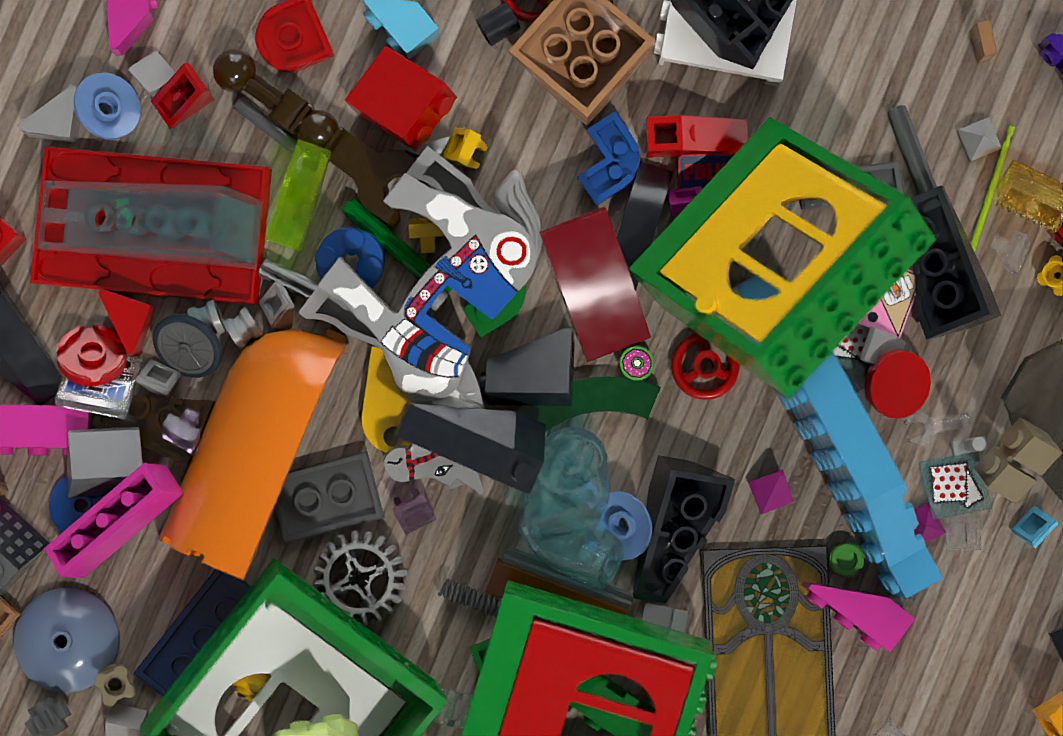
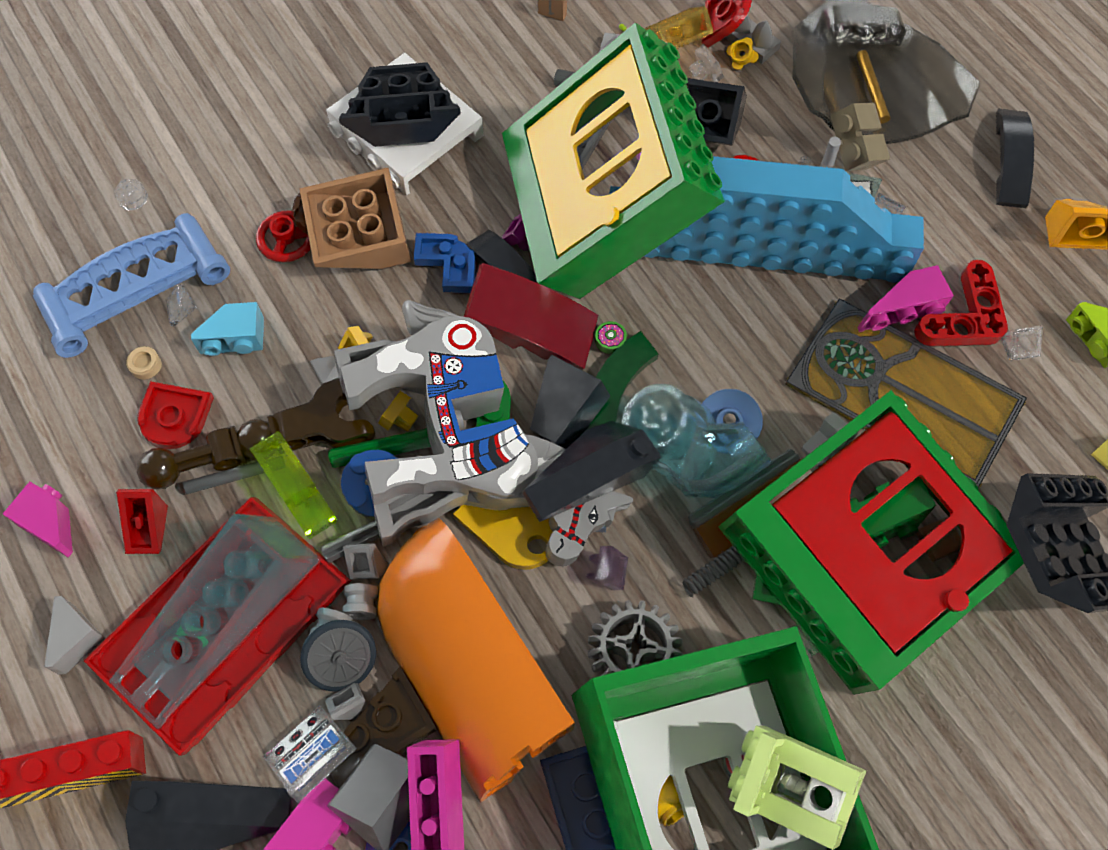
camera: 45 degrees left, 20 degrees down
(91, 355) = (282, 743): red tile -> none
(114, 95) = (96, 585): medium blue dish -> none
(129, 318) = (276, 690): red slope -> none
(152, 73) = (104, 537): light grey slope -> none
(183, 430) = (405, 705): clear purple tile -> none
(328, 498) = (554, 626): dark grey tile -> none
(401, 98) = (284, 360): red brick -> none
(498, 24) = (290, 269): black beam -> none
(682, 507) = (745, 363): black wedge -> none
(683, 380) = (647, 280): red piece -> none
(693, 135) = (472, 199): red slope -> none
(699, 168) = (501, 207): slope -> none
(771, 491) = (772, 308): magenta slope -> none
(846, 559) = (858, 292): bright green tile -> none
(884, 685) = (975, 320): none -> red beam
(1034, 526) = (913, 163): medium azure slope -> none

